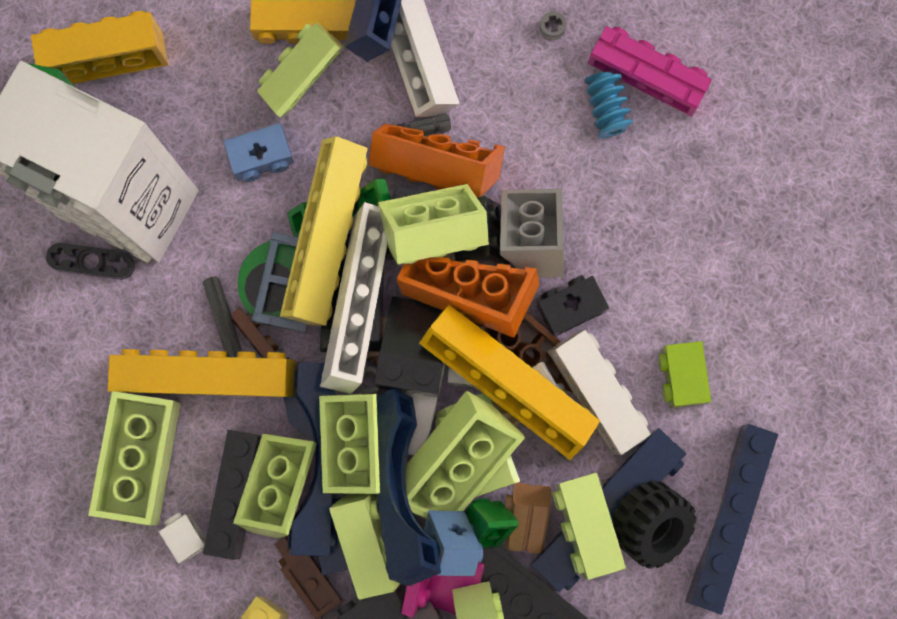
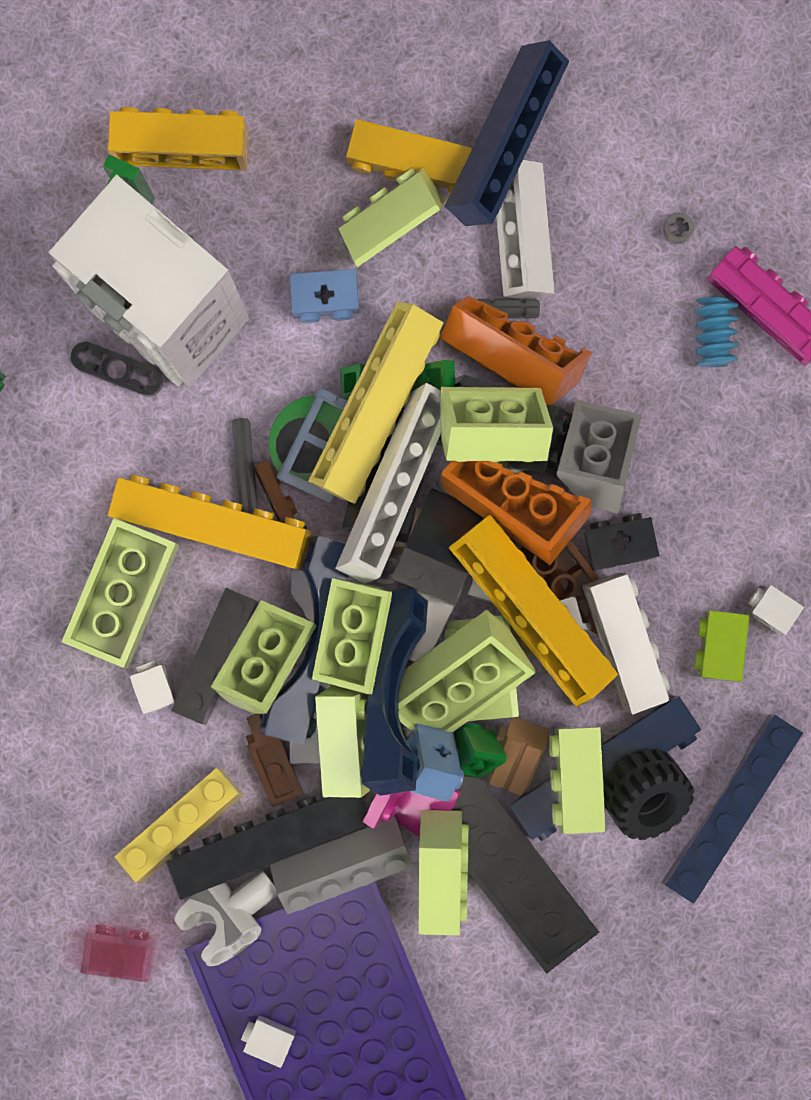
camera: 15 degrees right, 5 degrees up
(722, 331) = (774, 609): none -> white brick

